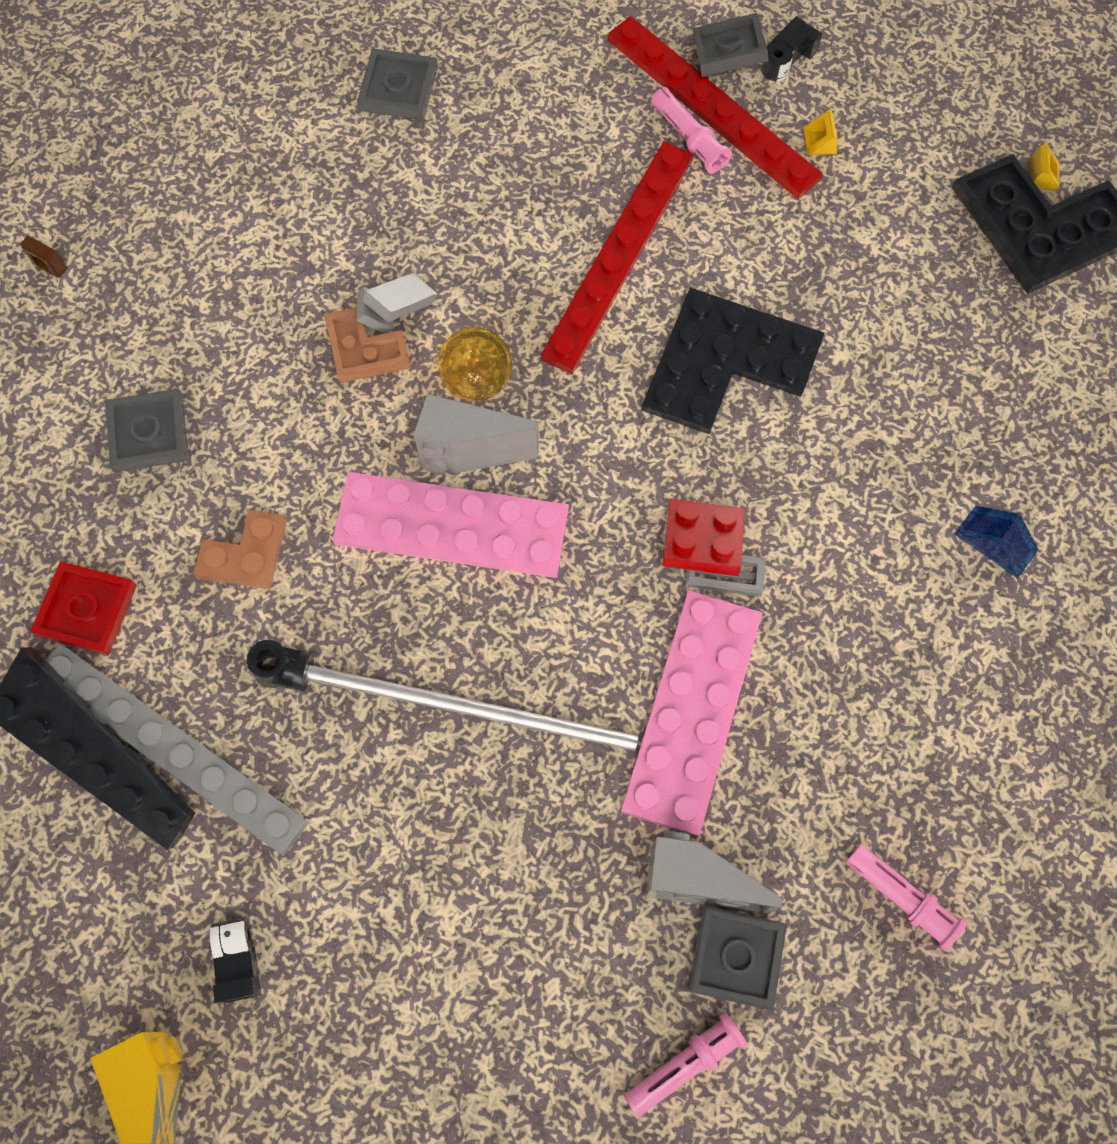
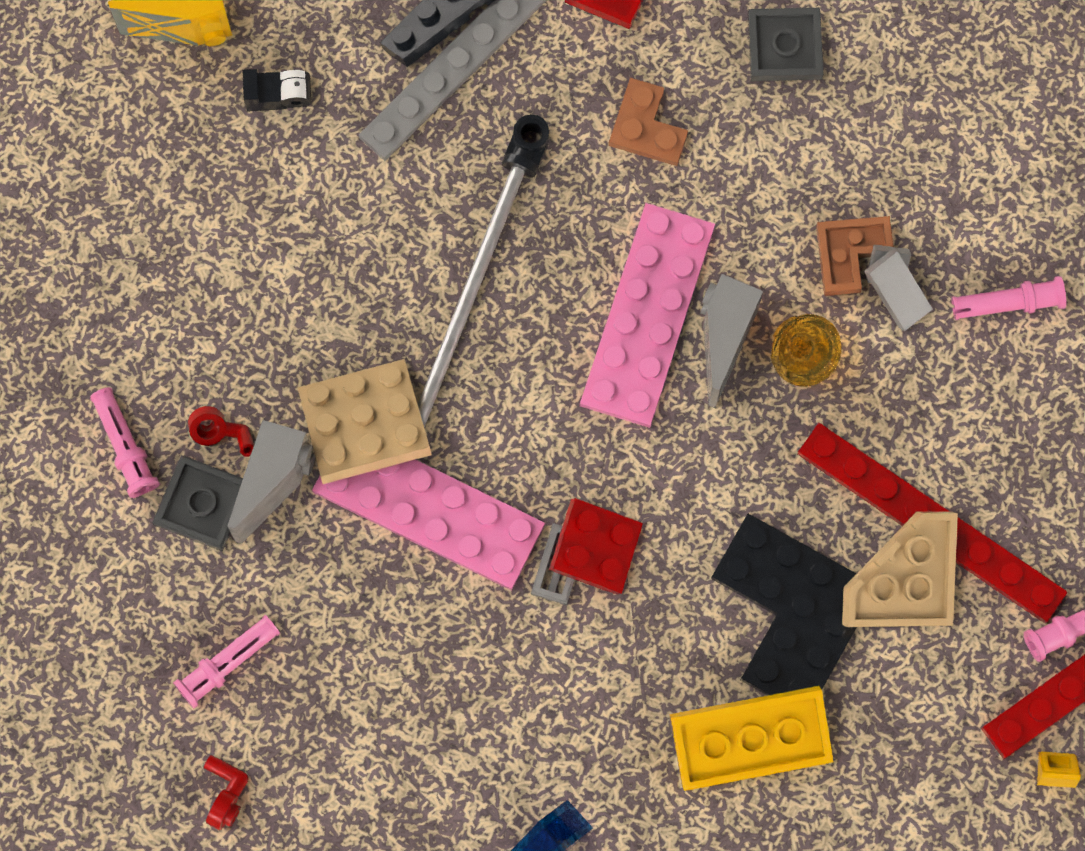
camera: 100 degrees right, 5 degrees up
(392, 197) = (1027, 297): none -> bright pink pin
(617, 789) = (364, 421): none -> tan plate
(649, 964) = (218, 429): none -> red plate
(683, 255) = (908, 577): none -> tan plate
(861, 372) = (751, 738): none -> yellow plate
(1062, 866) = (224, 809): none -> red plate

